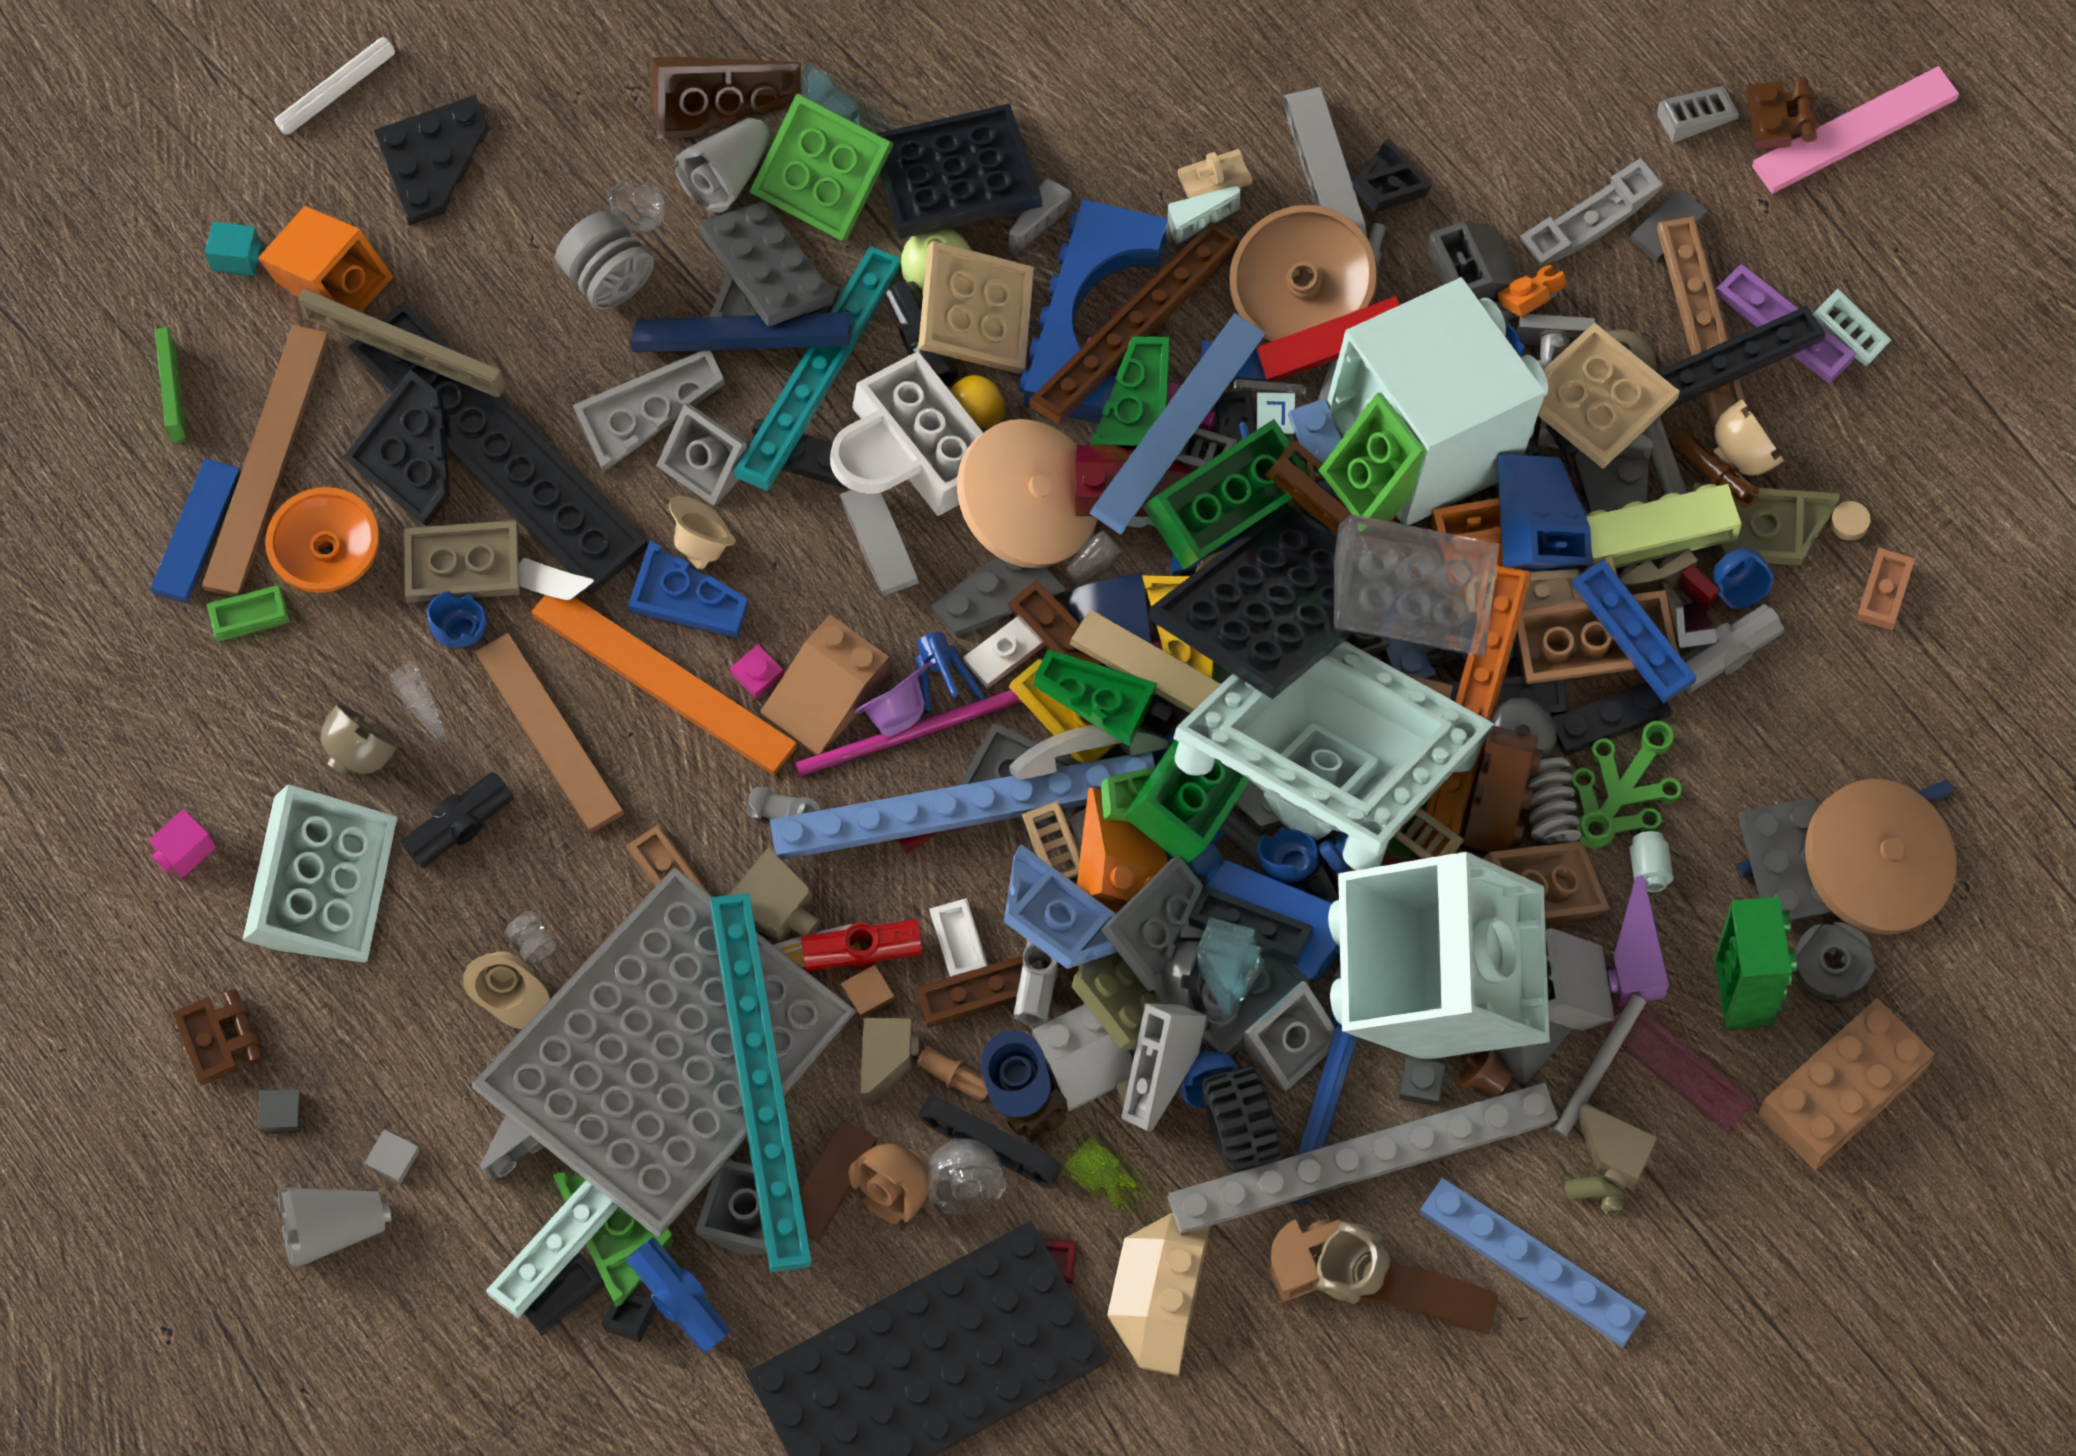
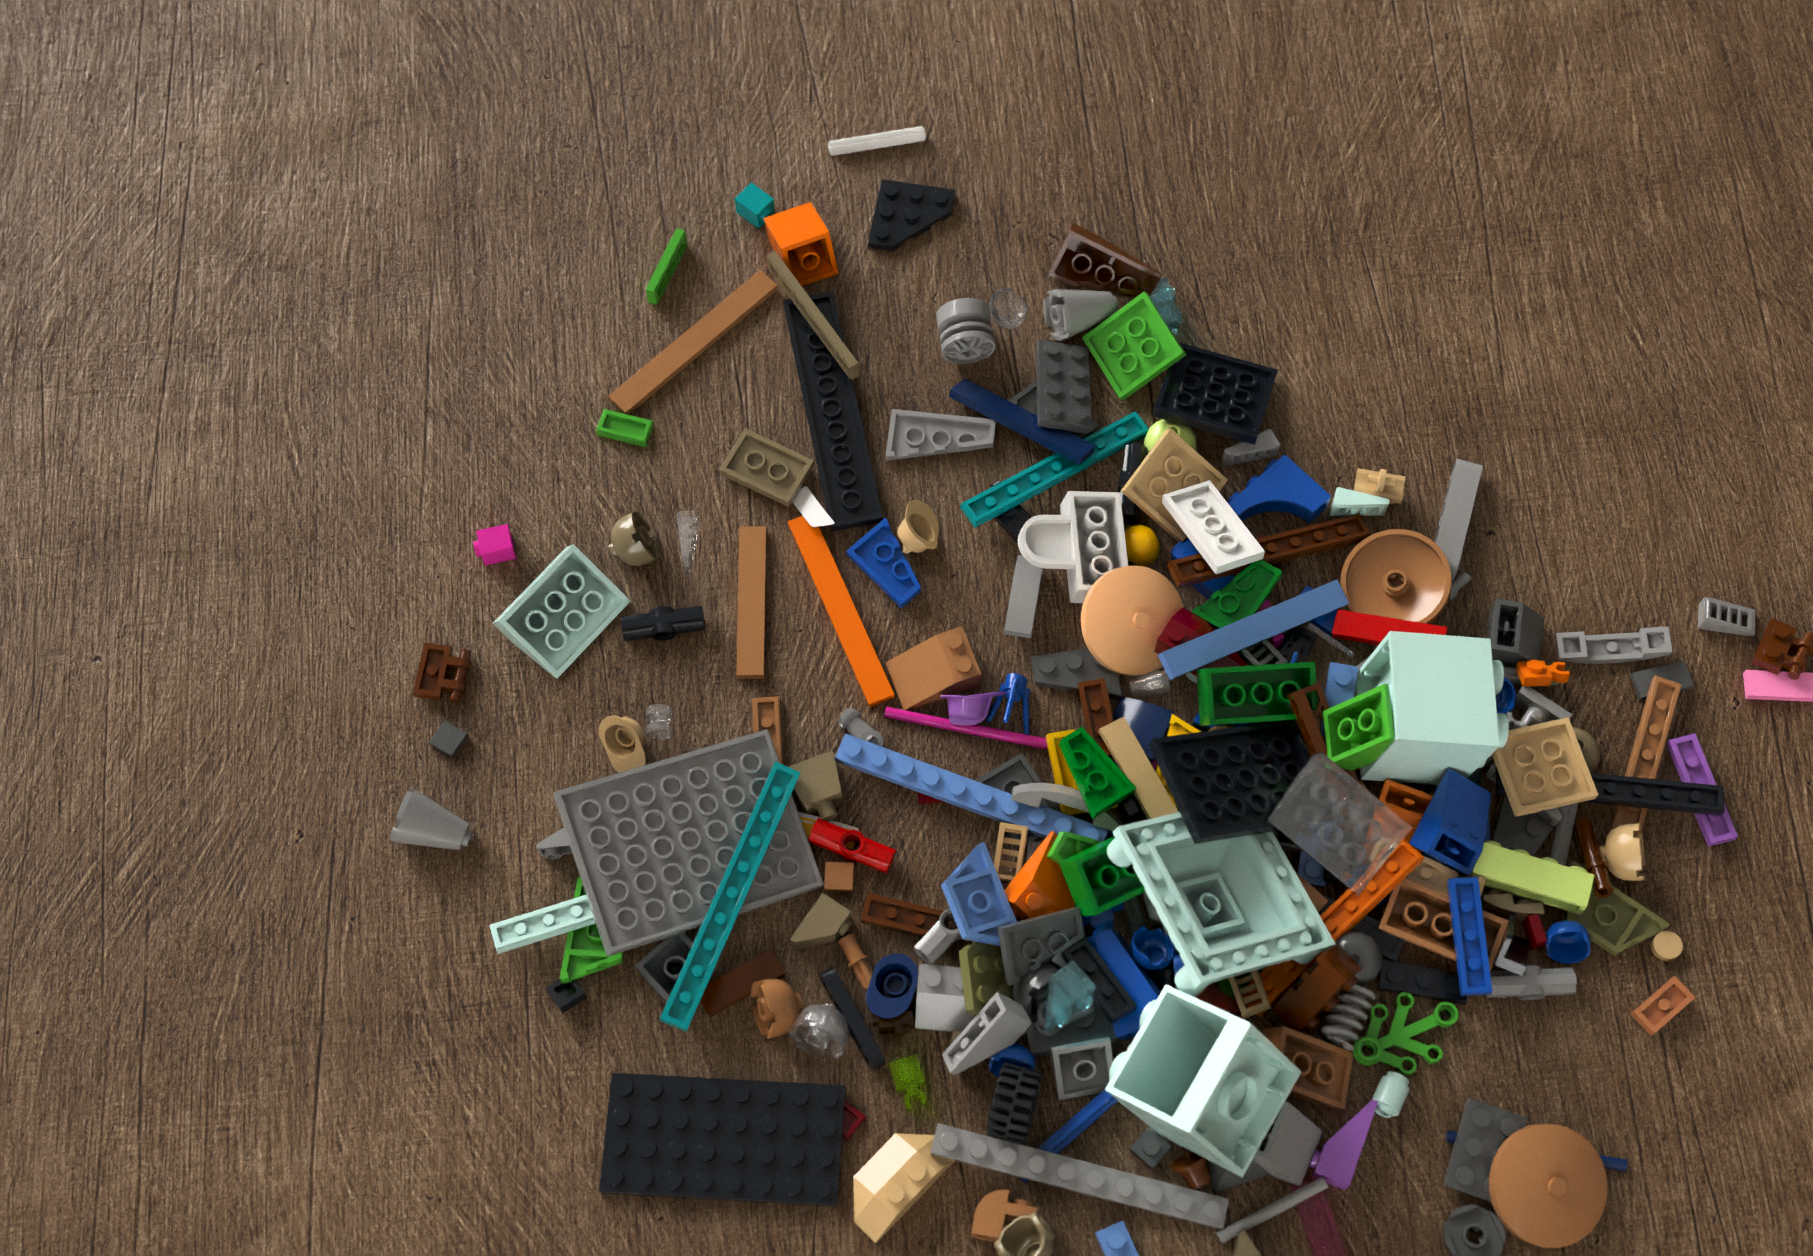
camera: 30 degrees right, 0 degrees up
(195, 531) = (626, 361): blue tile -> none
(318, 521) = (690, 395): orange dish -> none
(392, 1156) = (494, 807): light grey tile -> none
(407, 449) = (776, 381): black plate -> none
(456, 620) = (739, 501): blue hair -> none
(563, 1294) = (536, 955): black plate -> none
(678, 1295) = (600, 999): blue piece -> none
(702, 455) = (949, 483): light grey slope -> none
(756, 671) = (899, 636): dark pink plate -> none
(958, 937) = (916, 876): white tile -> none
(1002, 652) = (1057, 711): white plate -> none
(1055, 330) = (1213, 527): none -> white plate
(1276, 407) = (1322, 656): light aqua brick -> none
(1390, 179) = (1492, 549): black wing -> none
(1754, 962) = (1413, 1207): green brick -> none
(1848, 310) = (1751, 806): light aqua slope -> none

